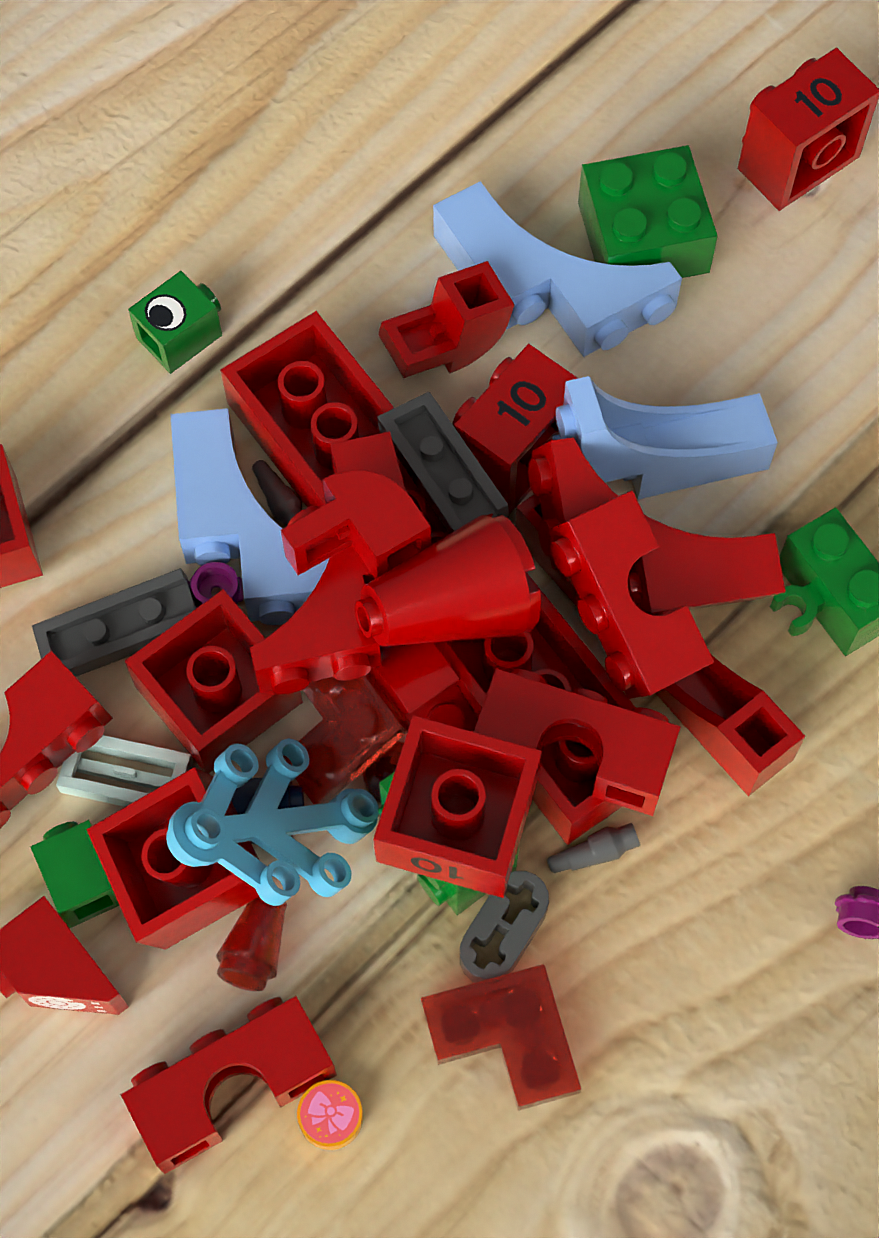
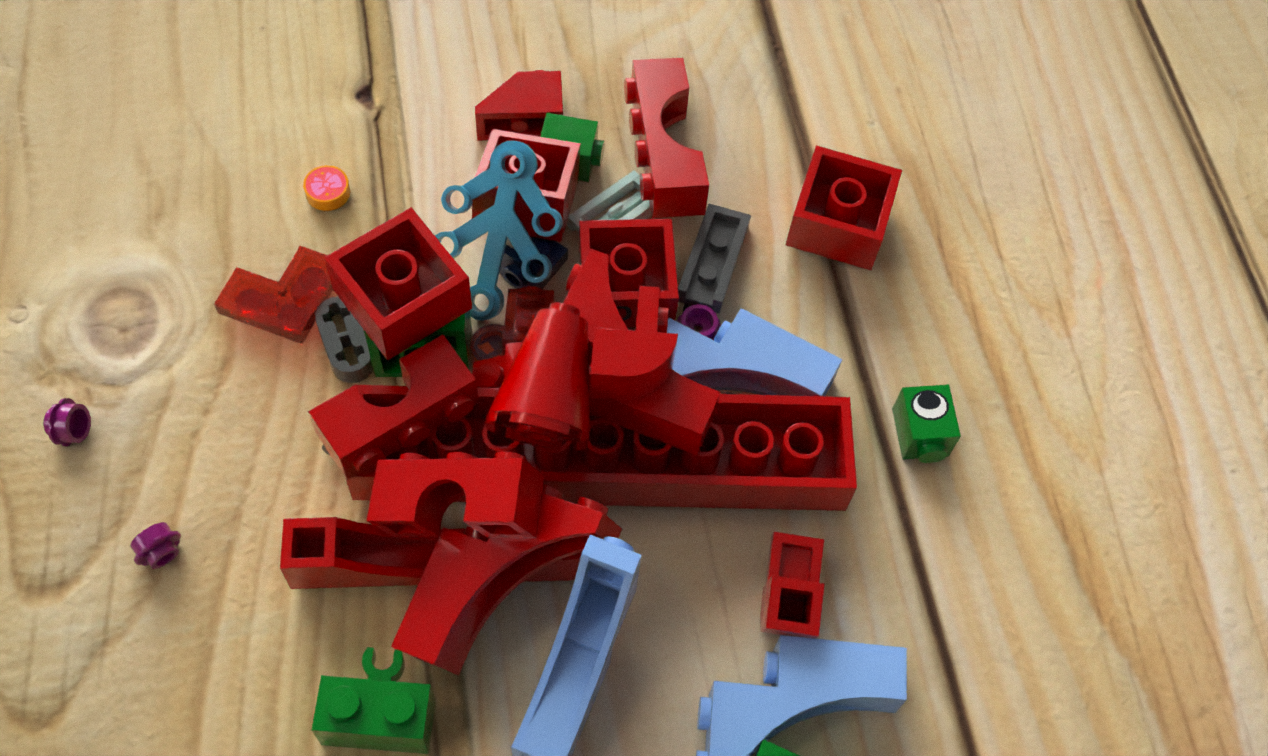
camera: 120 degrees right, 5 degrees down
(175, 1101) = (381, 177): red arch -> none
(253, 946) = (432, 194): clear red cone -> none
(441, 463) = (658, 469): dark grey hinge -> none
(513, 419) = (673, 576): red brick -> none
(828, 1126) = (67, 422): none -> magenta plate

